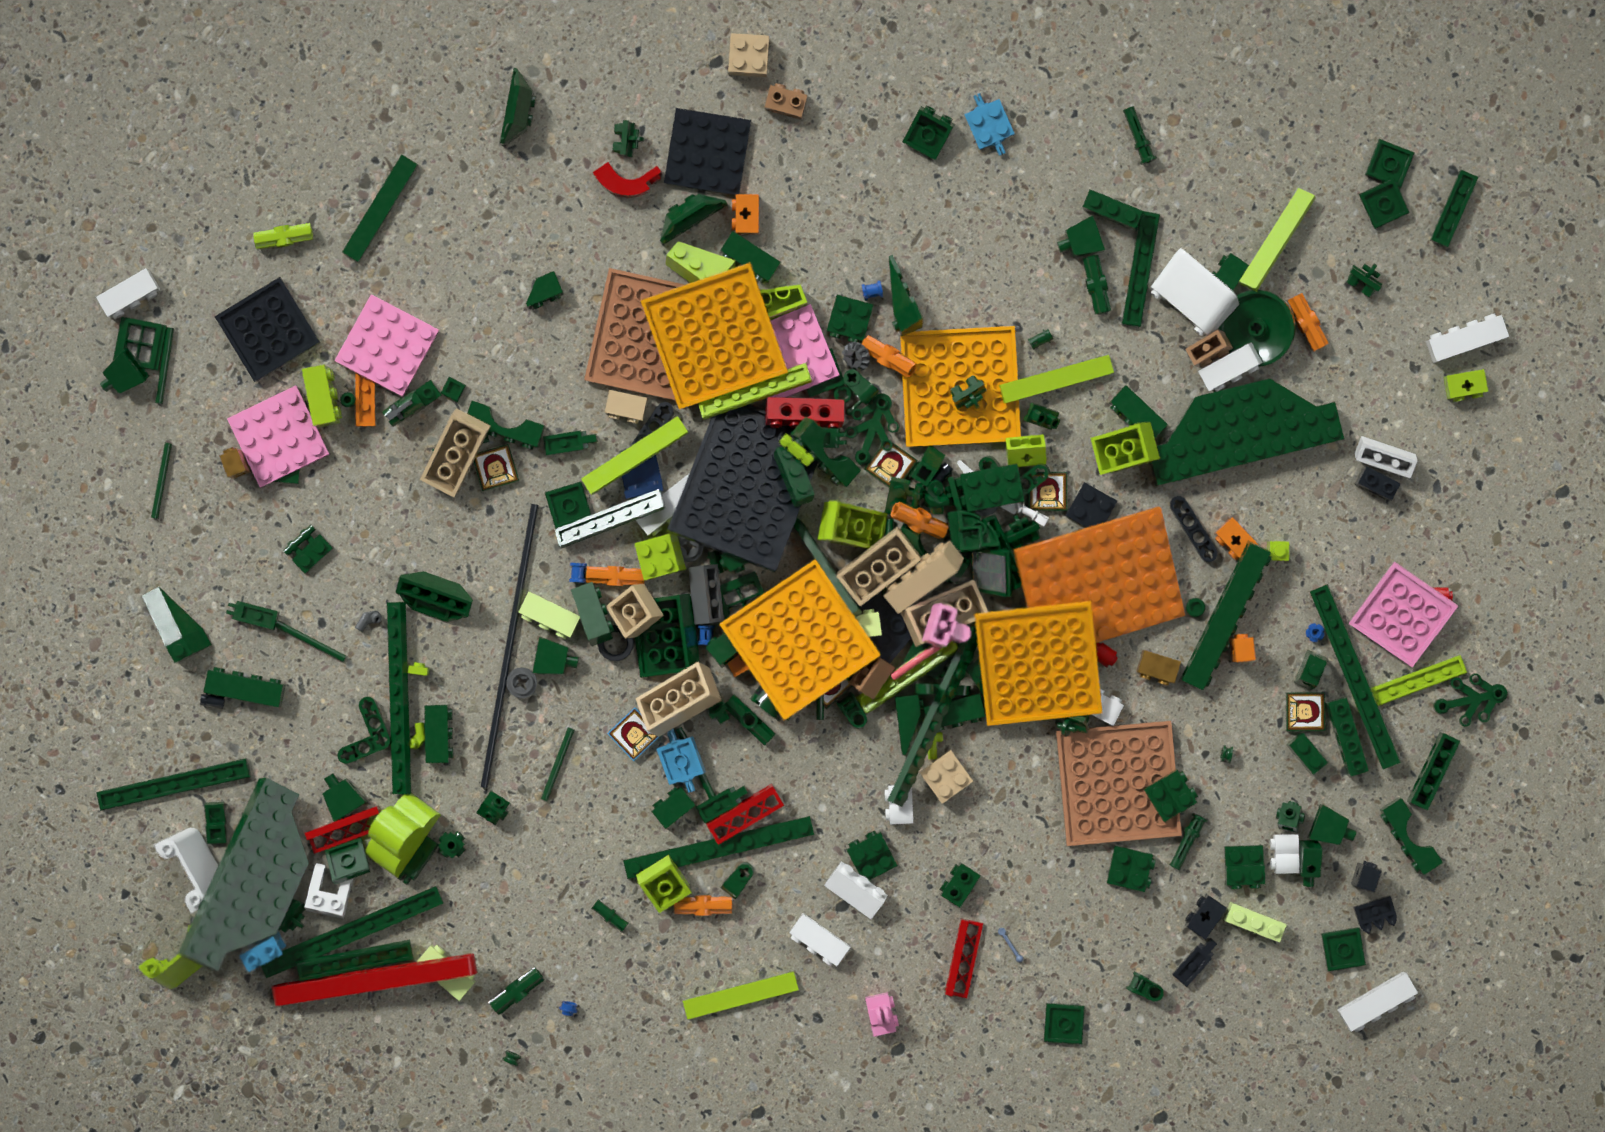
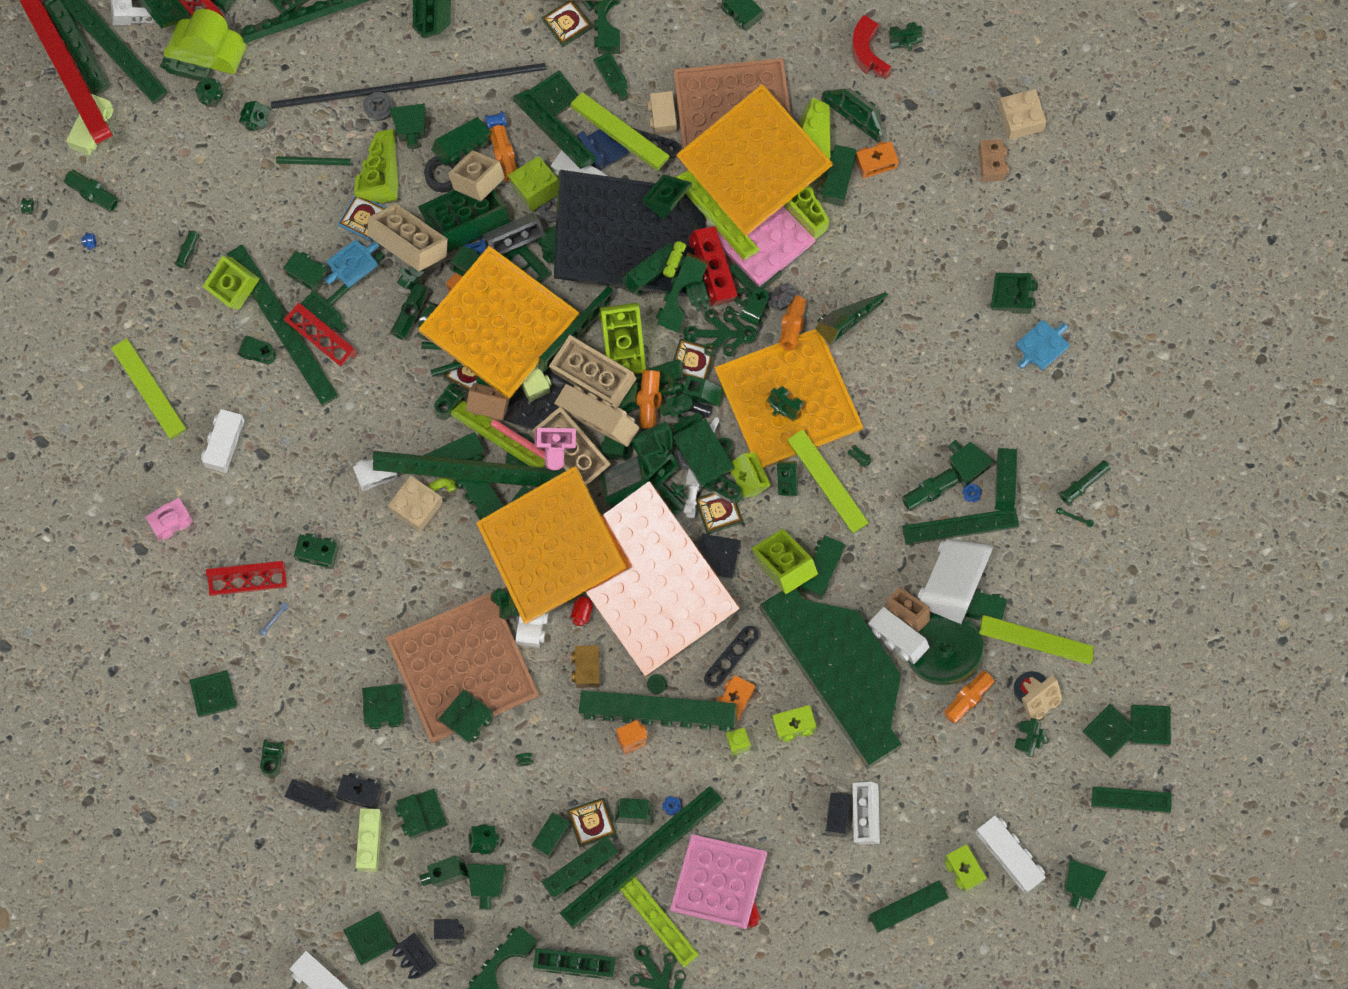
camera: 70 degrees right, 15 degrees down
(418, 668) = (361, 15): lime plate -> none
(419, 738) = (299, 36): lime arm -> none
(438, 733) = (307, 49): dark green brick -> none
(549, 615) = (448, 106): yellowish green brick -> none
(595, 704) = (379, 172): none -> lime wedge
(704, 905) = (222, 327): orange piece -> none
(707, 151) = (921, 109): black plate -> none
(721, 433) = (665, 194): none -> dark green slope
(849, 319) = (815, 280): dark green plate -> none
(856, 890) = (280, 457): white brick -> none
(871, 855) = (317, 462): dark green plate -> none
(872, 290) = (848, 291): blue bush -> none
(933, 689) = (492, 456): dark green beam -> none
(1117, 246) = (972, 488): none -> blue plate
(1178, 146) = (1089, 523): none -> dark green hinge
(1195, 833) = (436, 752): dark green pin -> none
(1272, 483) = (802, 716): none -> lime brick
(1285, 853) = (446, 846): white brick -> none
(1327, 258) = (1037, 693): none -> tan plate
(1481, 448) = (908, 906): none -> dark green plate
(1515, 283) = (1081, 883): none -> dark green torso

